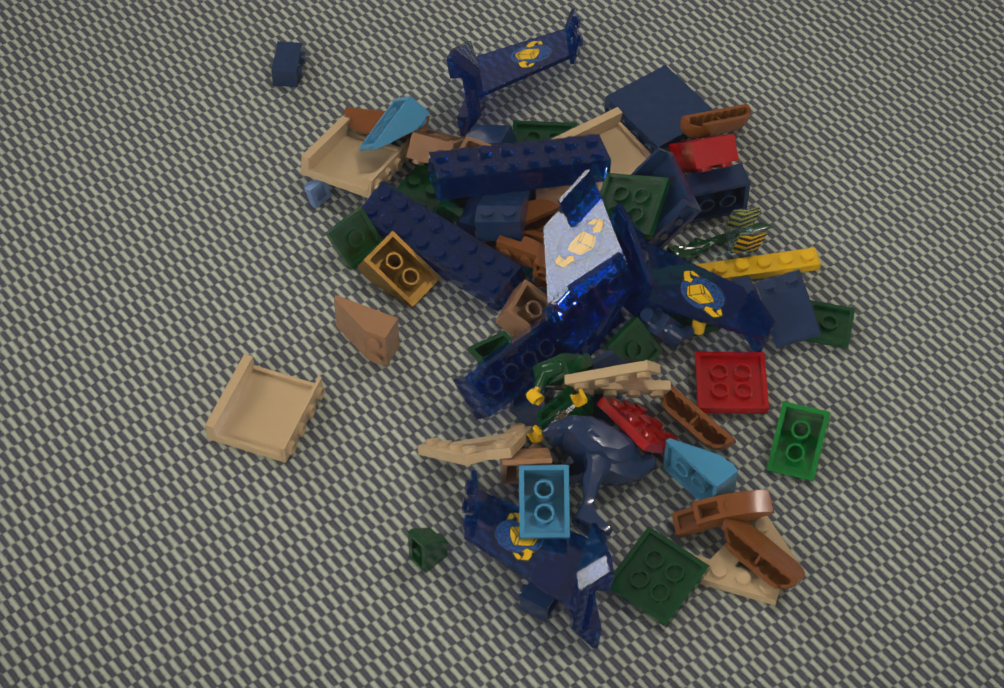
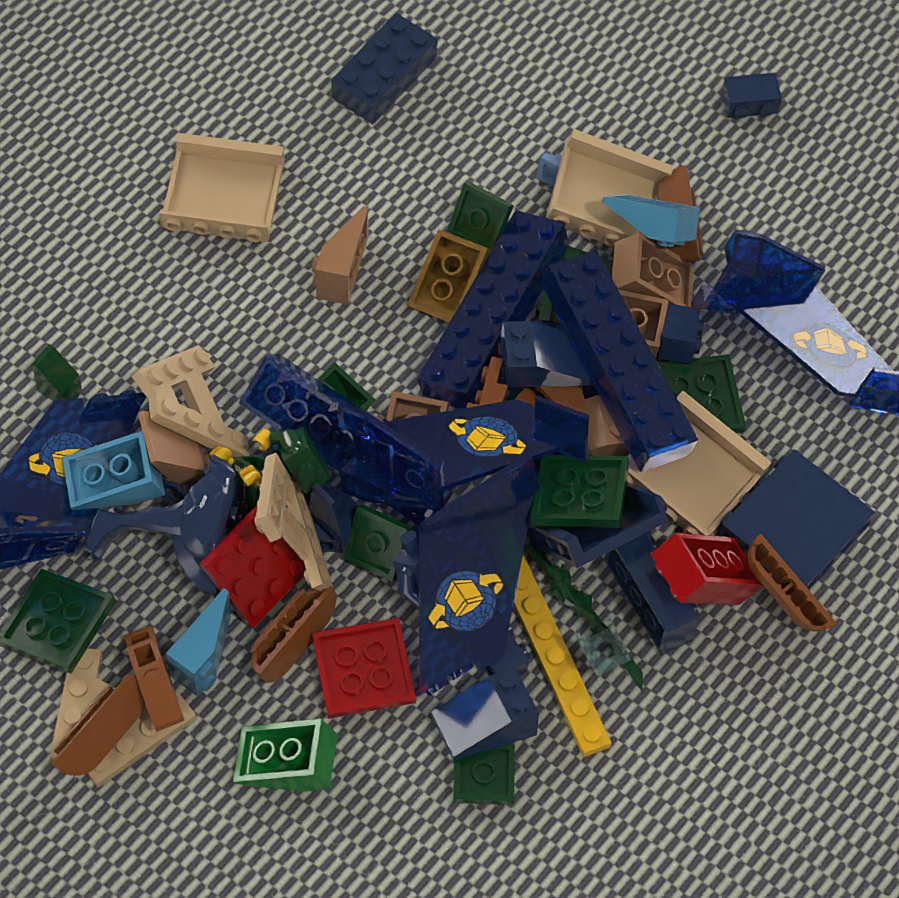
camera: 75 degrees right, 10 degrees up
(183, 279) = (384, 68): none -> dark blue brick

